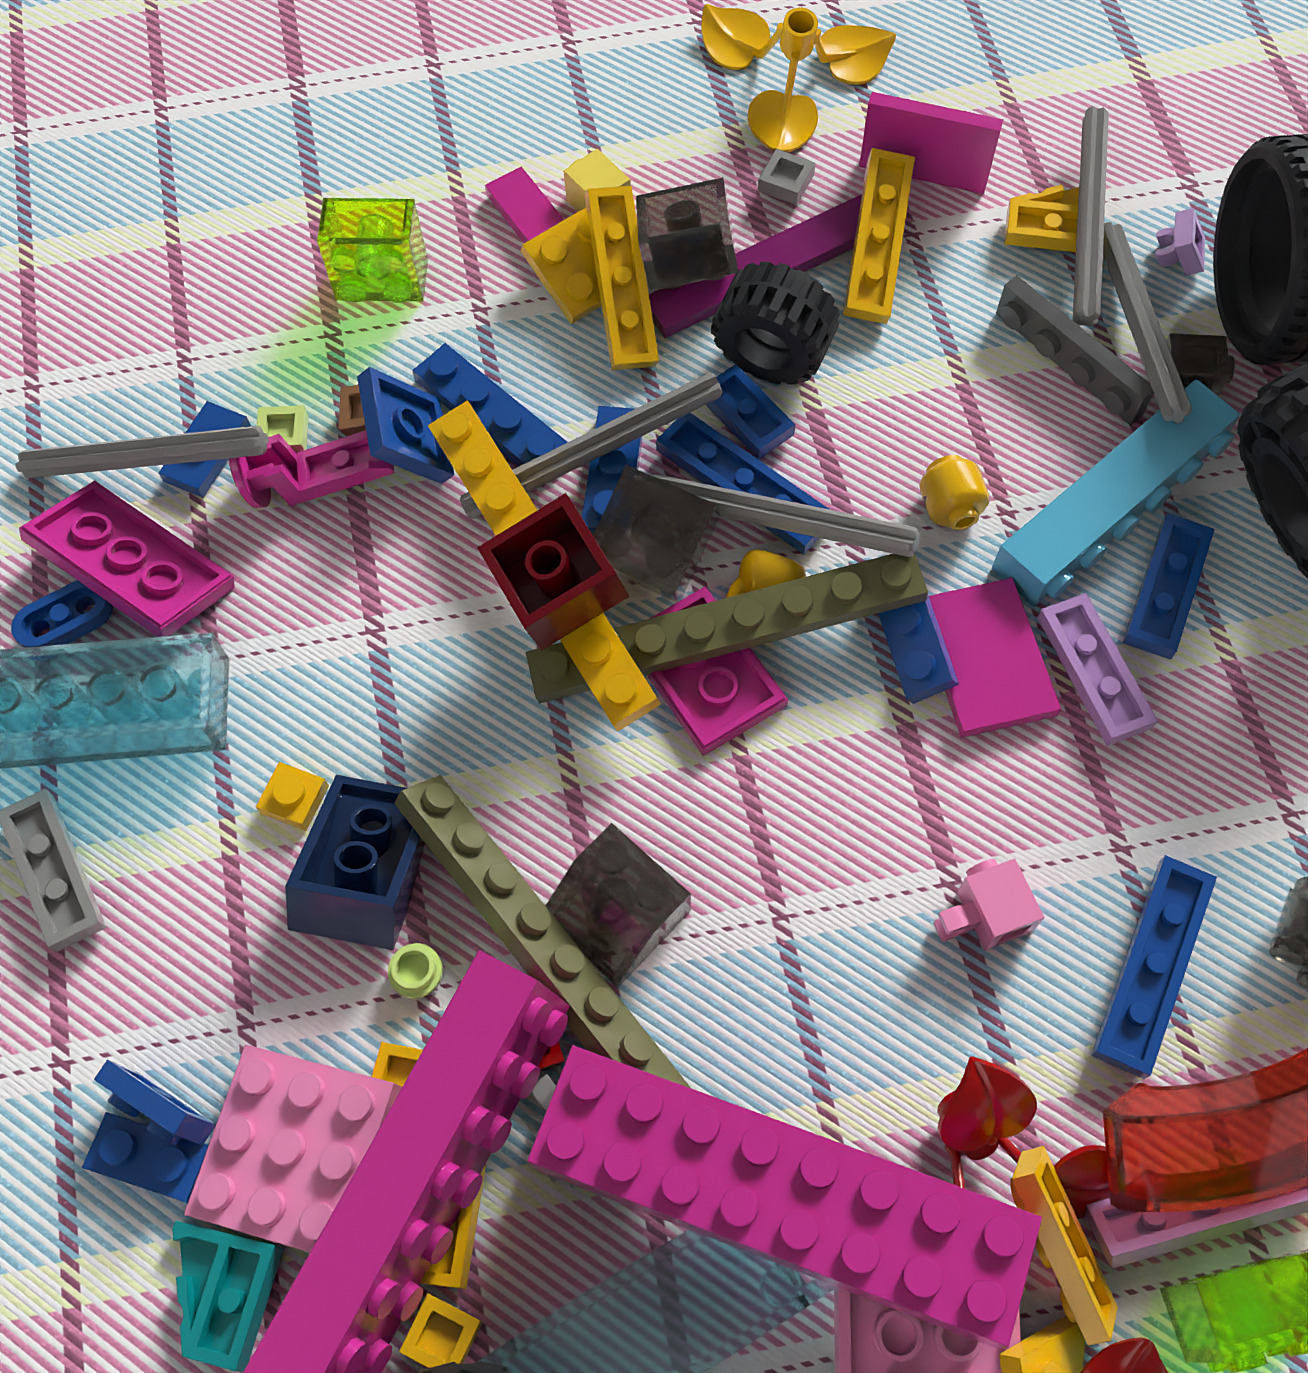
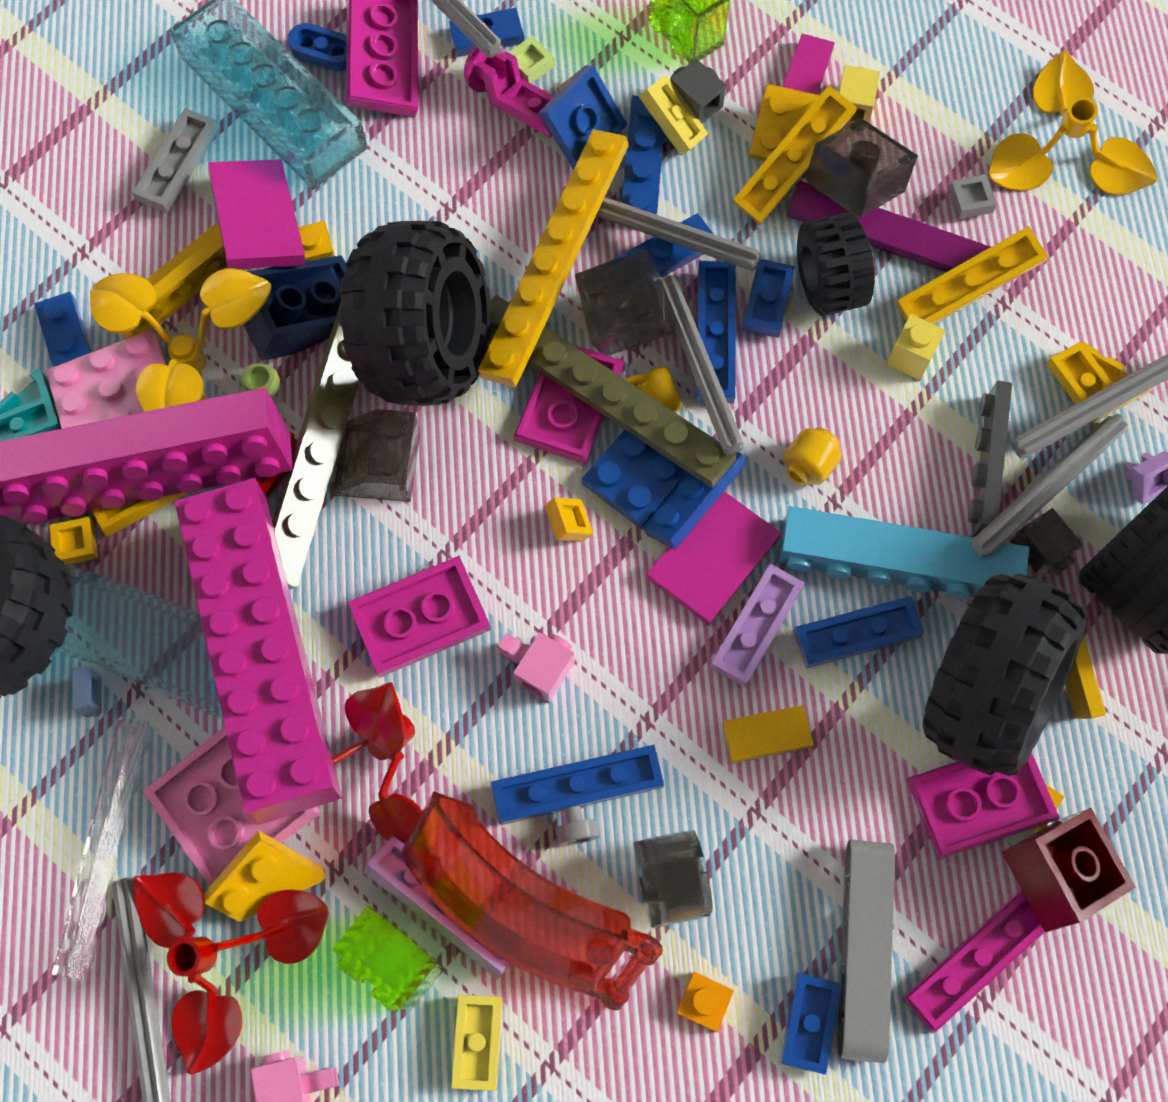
camera: 50 degrees right, 5 degrees up
(168, 1115) = (81, 320): blue plate -> none
(202, 983) = (183, 277): none -> yellow panel
(213, 825) = (255, 214): none -> dark pink tile
(359, 1079) = (124, 298): none -> yellow plant
(467, 311) = (700, 89): none -> dark grey brick
(476, 347) = (673, 115): none -> light yellow plate
(514, 731) = (415, 312): none -> black tyre
(553, 572) = (534, 260): dark red brick -> none
(842, 995) = (419, 616): none -> dark pink plate
(843, 670) = (633, 478): none -> blue plate
(846, 763) = (568, 519): none -> yellow plate
(908, 327) = (915, 347): none -> light yellow brick
(947, 143) = (1074, 259): dark pink tile -> none
(1064, 1246) = (351, 830): yellow plate -> none
(1208, 1001) = (576, 830): none -> light grey tile
(1218, 744) = (767, 734): none -> yellow tile

